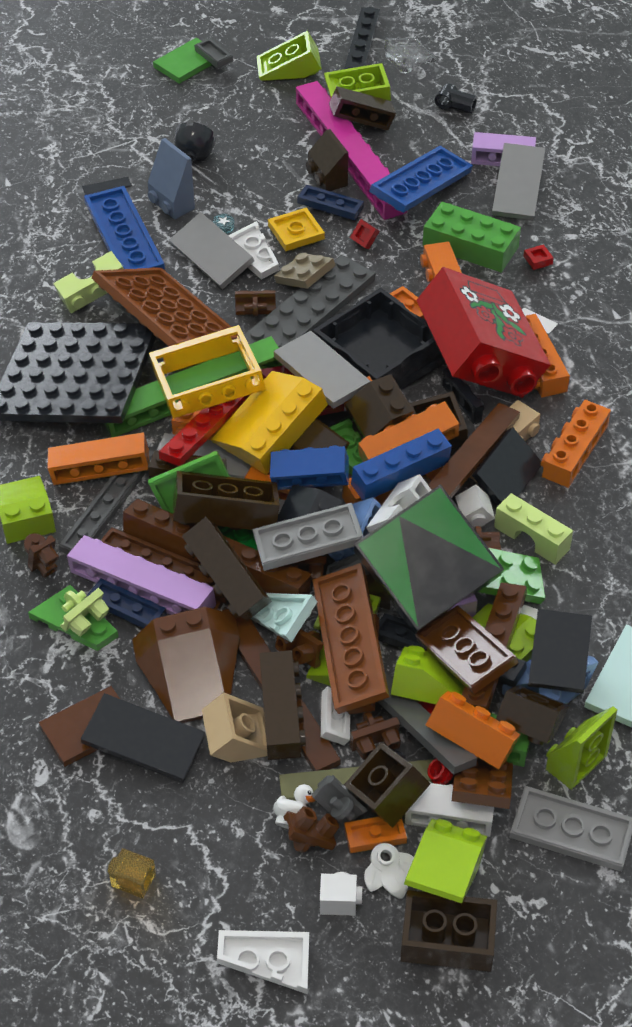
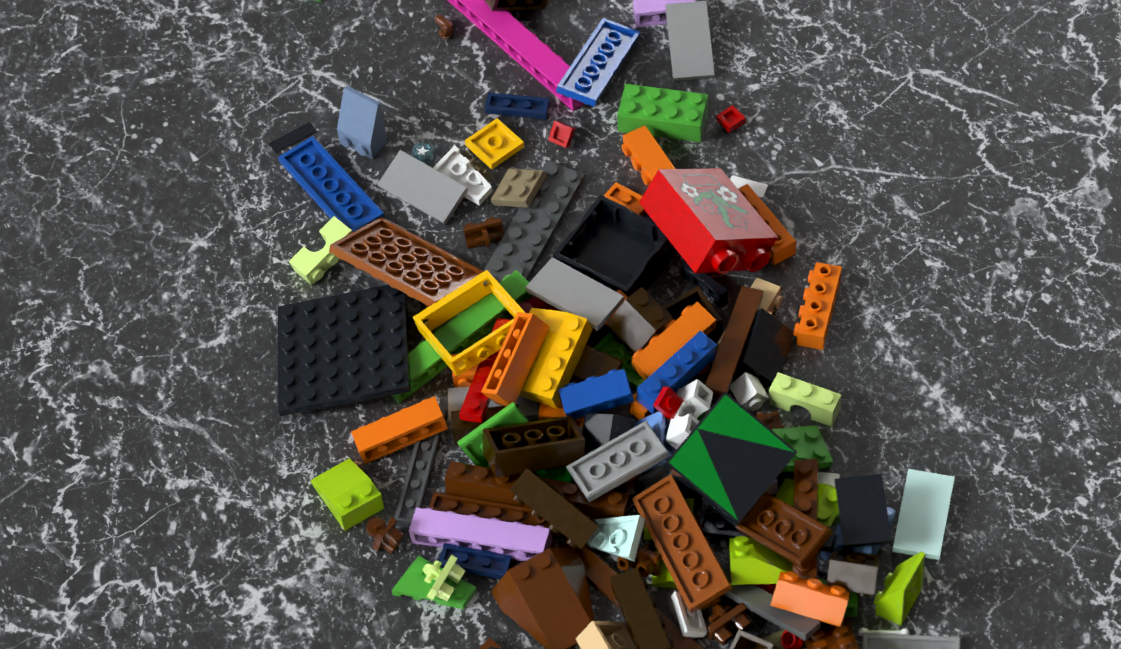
camera: 10 degrees left, 5 degrees up
(194, 140) = (363, 72): black cylinder -> none
(235, 410) = (515, 359): none -> orange brick
(288, 124) = (446, 26): none -> reddish brown arm
(328, 162) = (502, 64): dark brown slope -> none
(381, 490) = (668, 402): none -> red plate
(574, 796) = (904, 631): none -> white hinge

